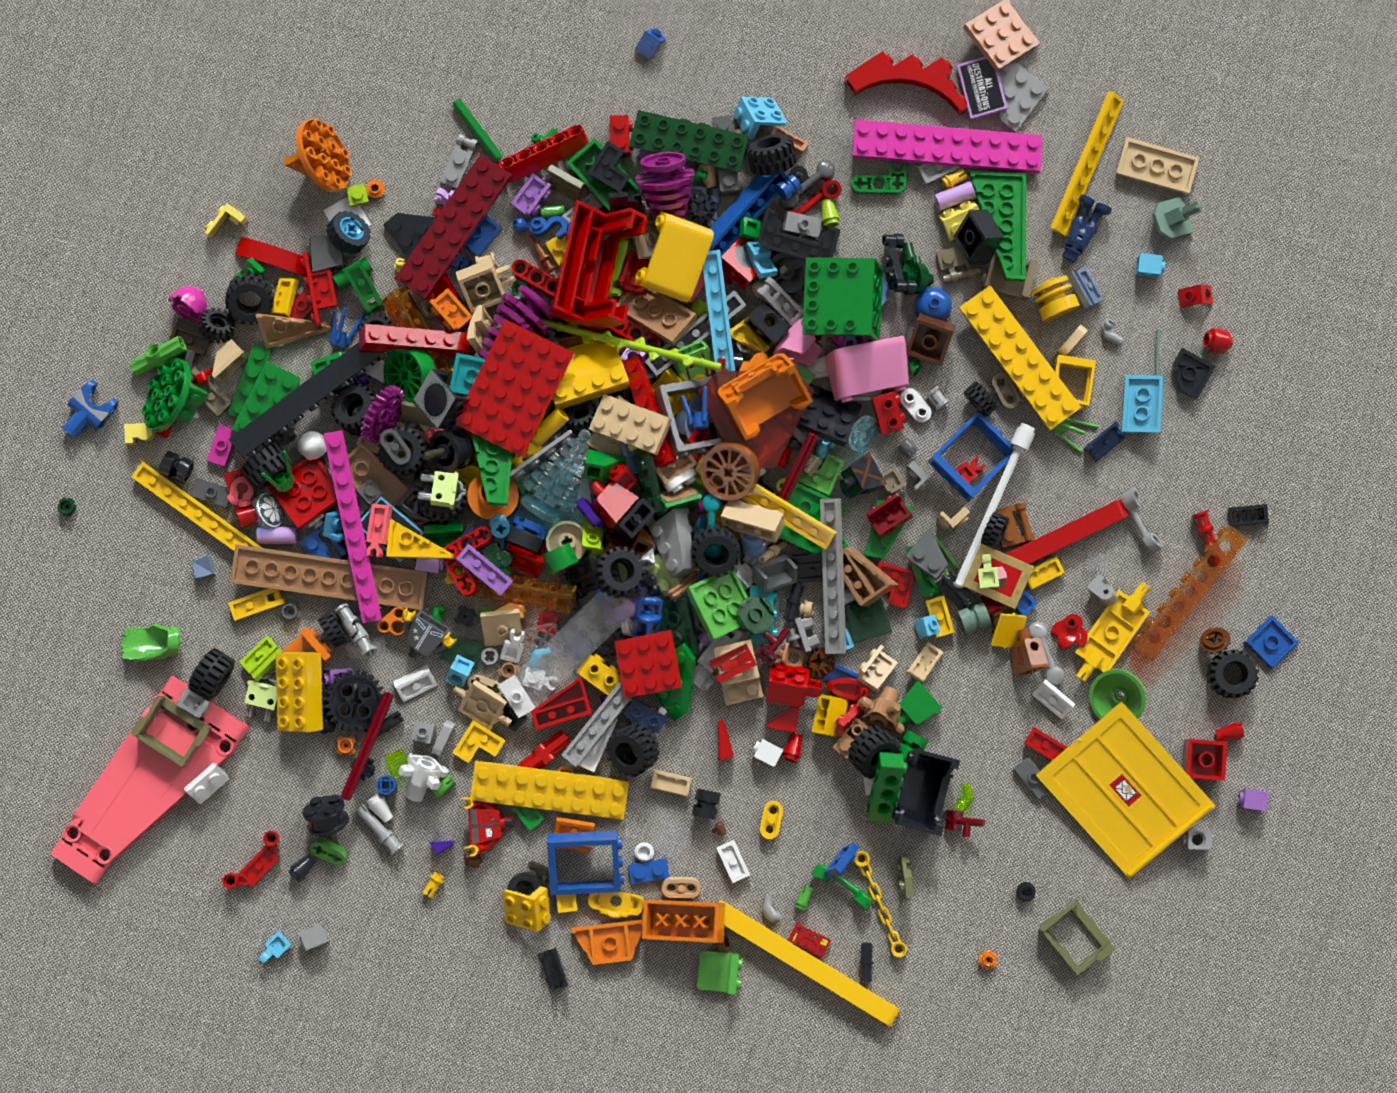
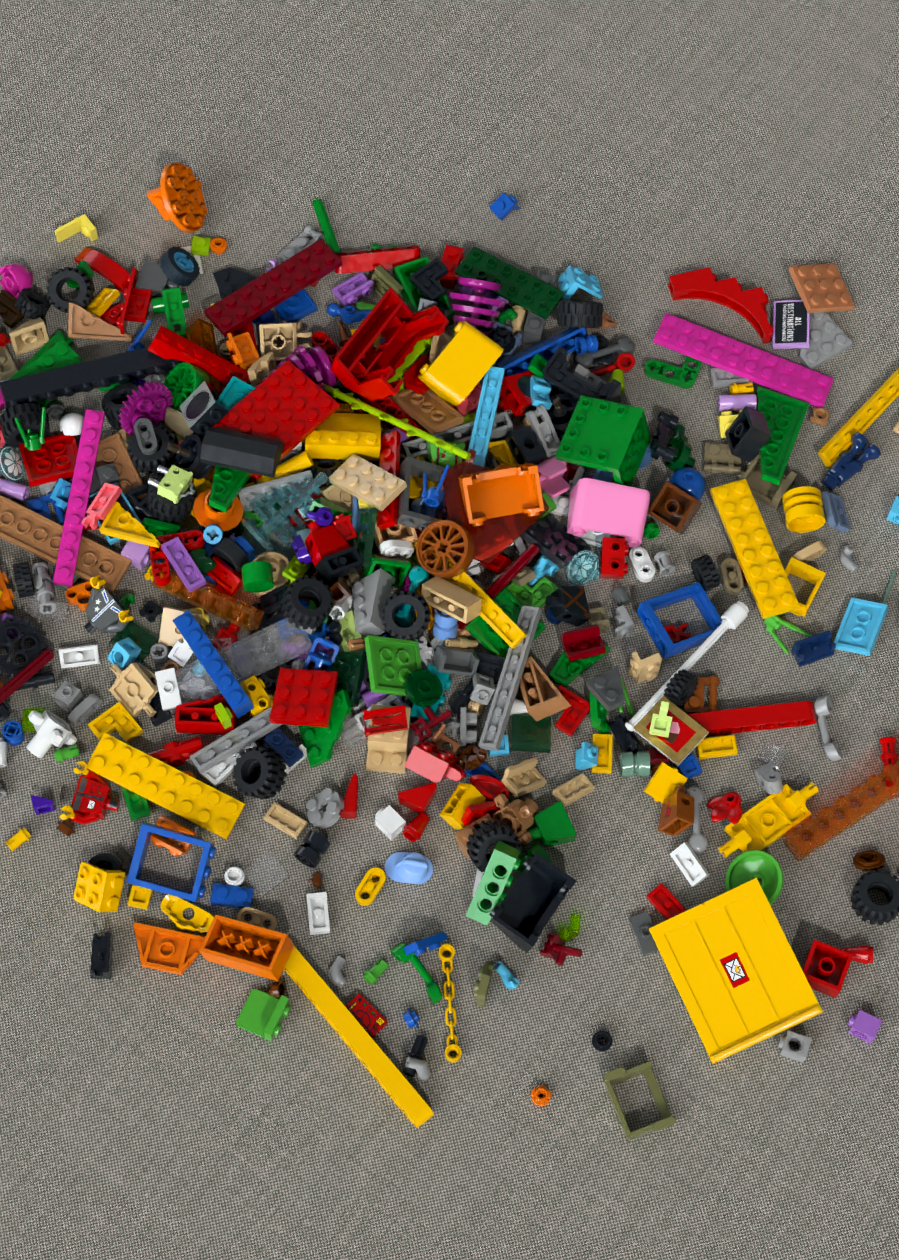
camera: 20 degrees right, 20 degrees down
(499, 438) = (241, 451): none -> black piece
(551, 661) = (213, 664): none -> blue brick
(581, 708) = (223, 715): none -> lime plate
(601, 477) = (322, 516): none -> dark purple plate
(695, 757) = (326, 799): none -> light grey plate
(798, 787) = (409, 867): none -> light blue piece
(810, 592) = (483, 688): none -> light grey bracket
(851, 930) = (411, 1018): none -> blue plate
(874, 972) = (421, 1067): none -> light grey arm
(923, 861) = (507, 977): none -> medium azure arm
(1044, 179) = (820, 412): none -> medium nougat plate

